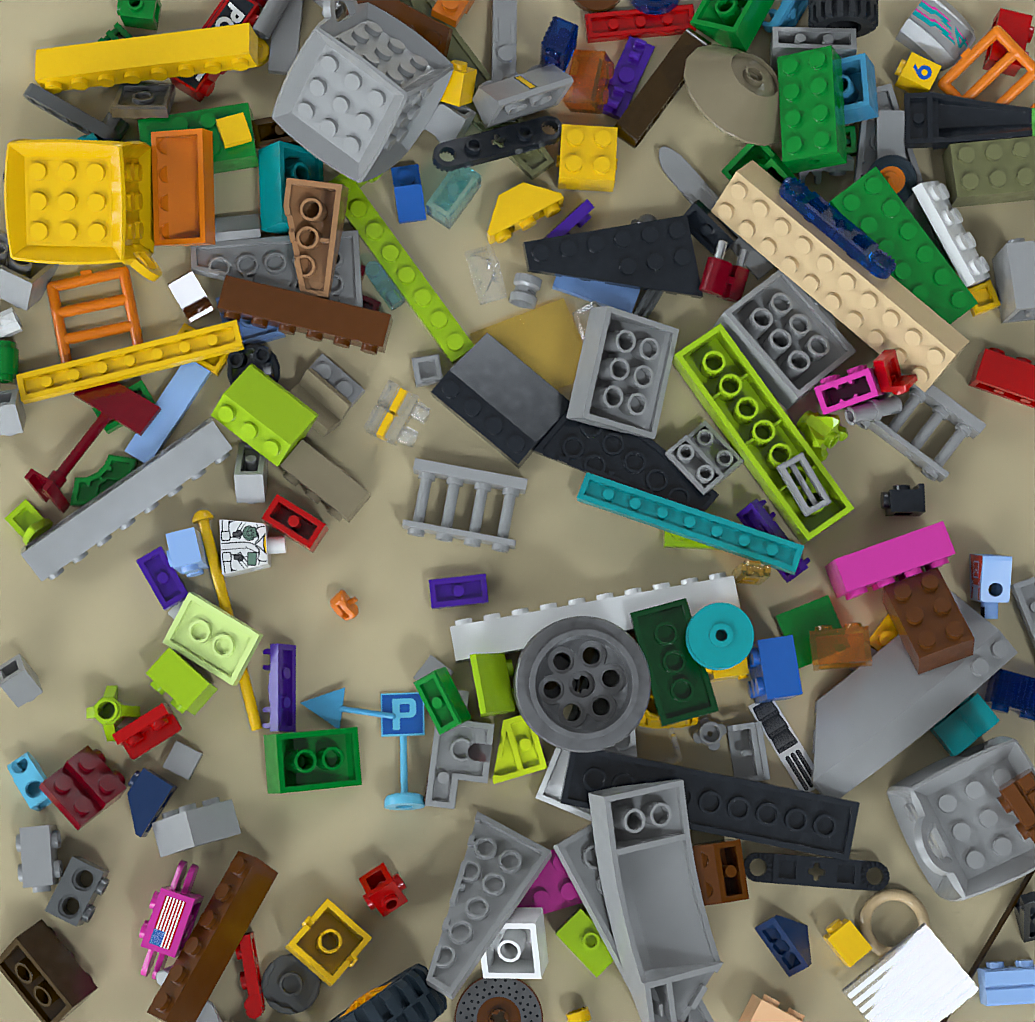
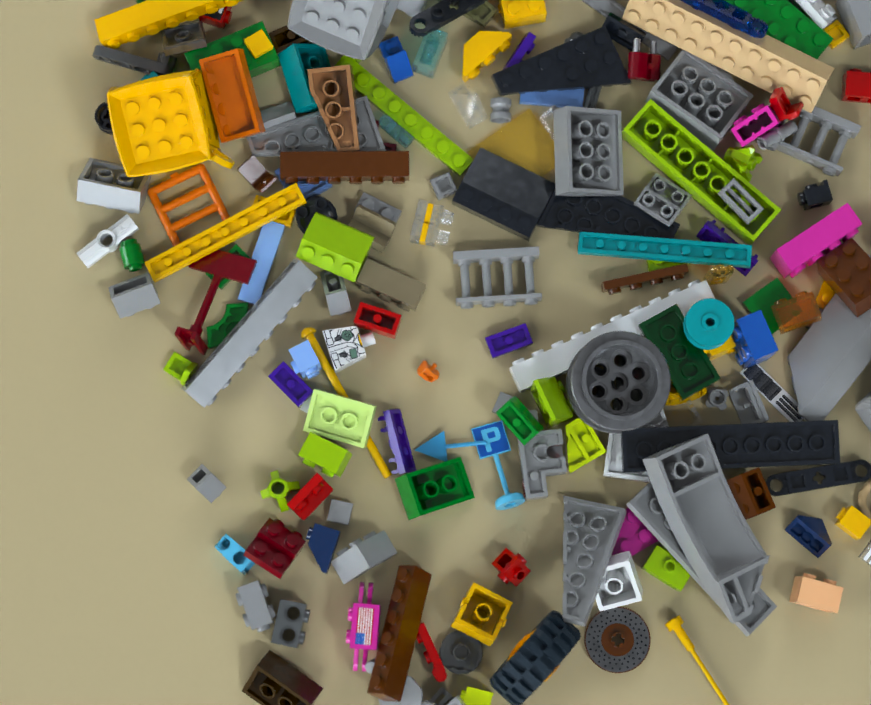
camera: 10 degrees left, 0 degrees up
(642, 554) = (653, 277): none -> reddish brown plate

